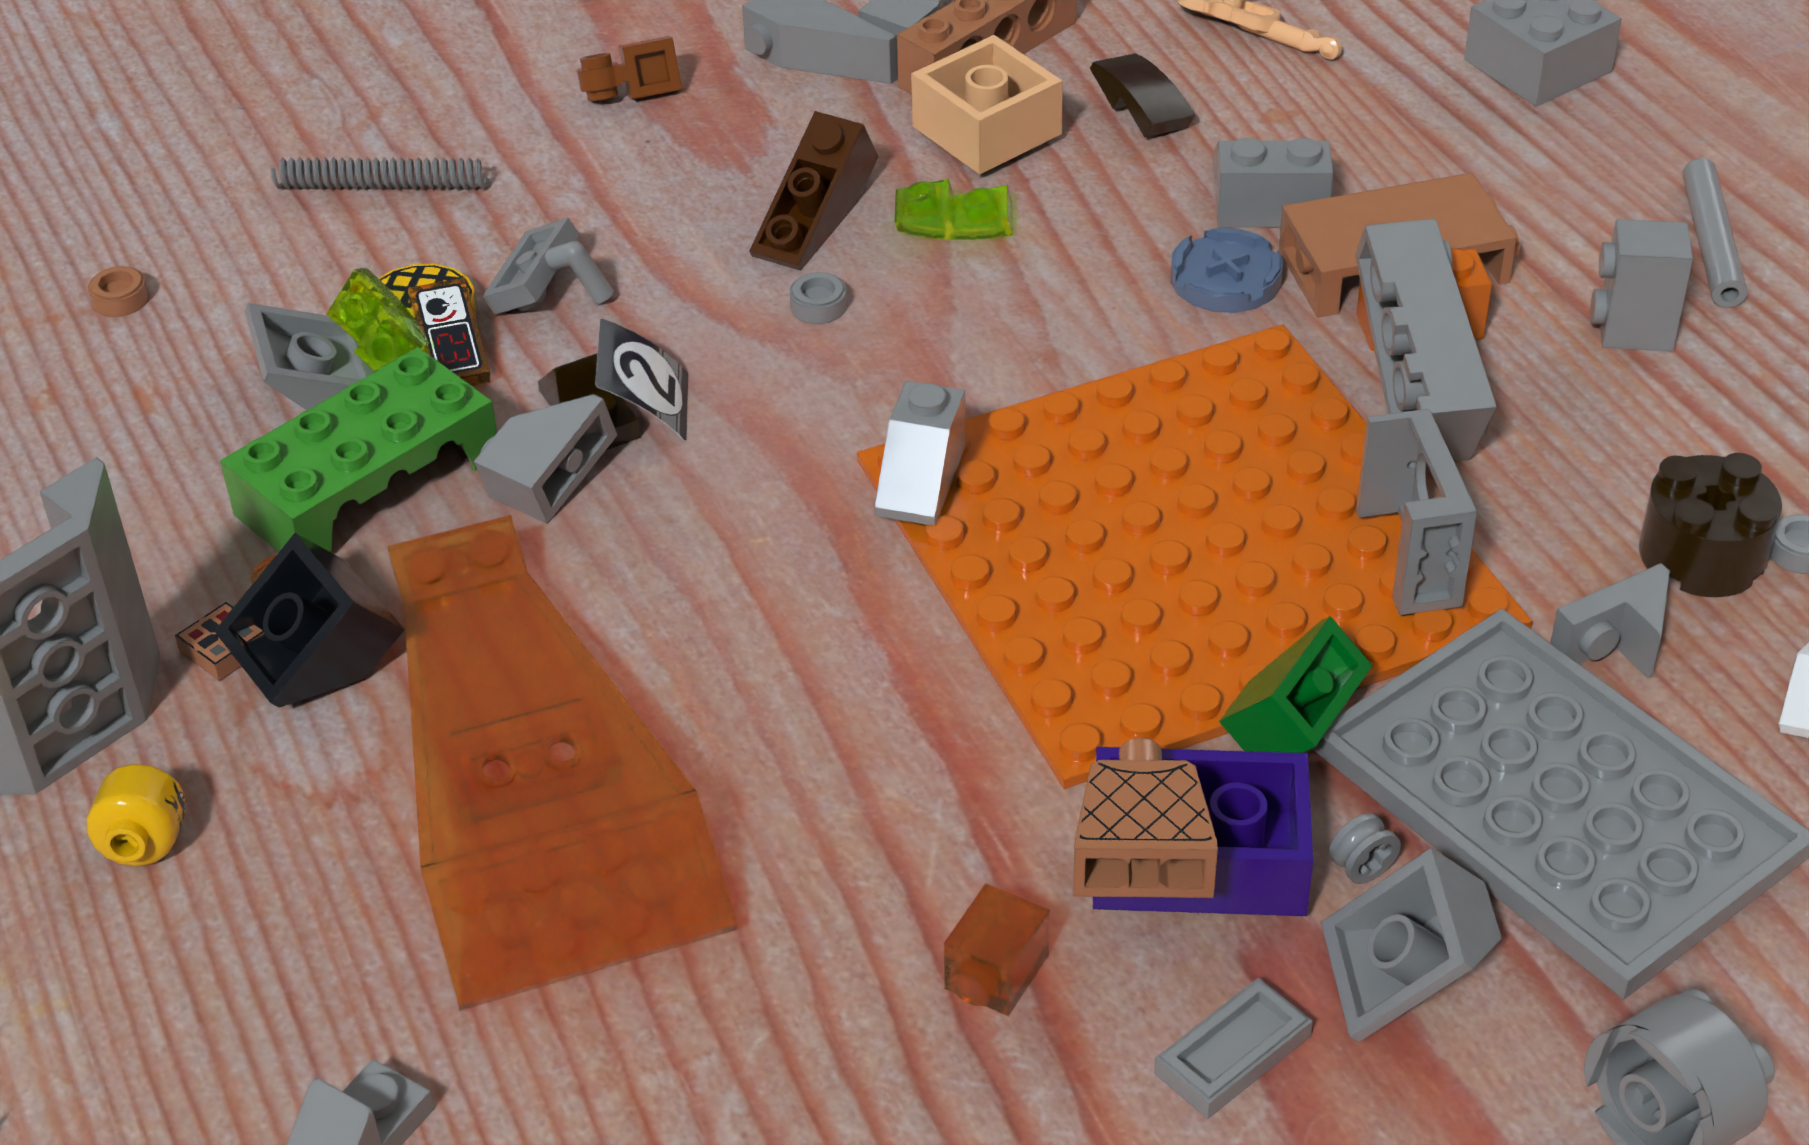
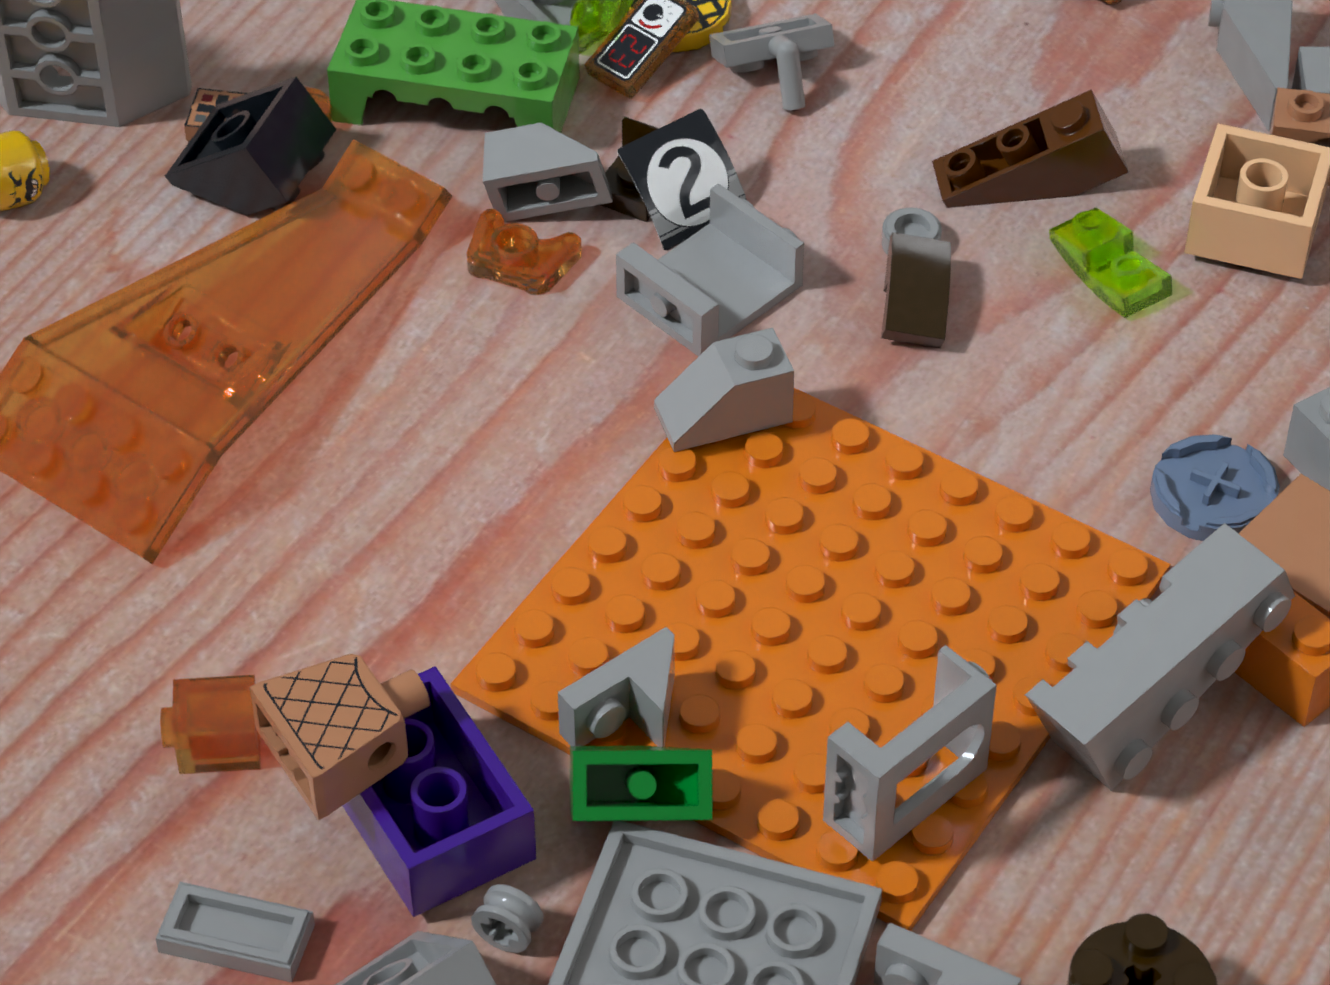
camera: 55 degrees right, 5 degrees up
(605, 526) = (517, 256): none -> clear orange piece
(754, 415) = (716, 276): none -> light grey panel
(898, 314) = (917, 290): none -> dark brown slope
(1205, 651) = (629, 686): none -> light grey slope

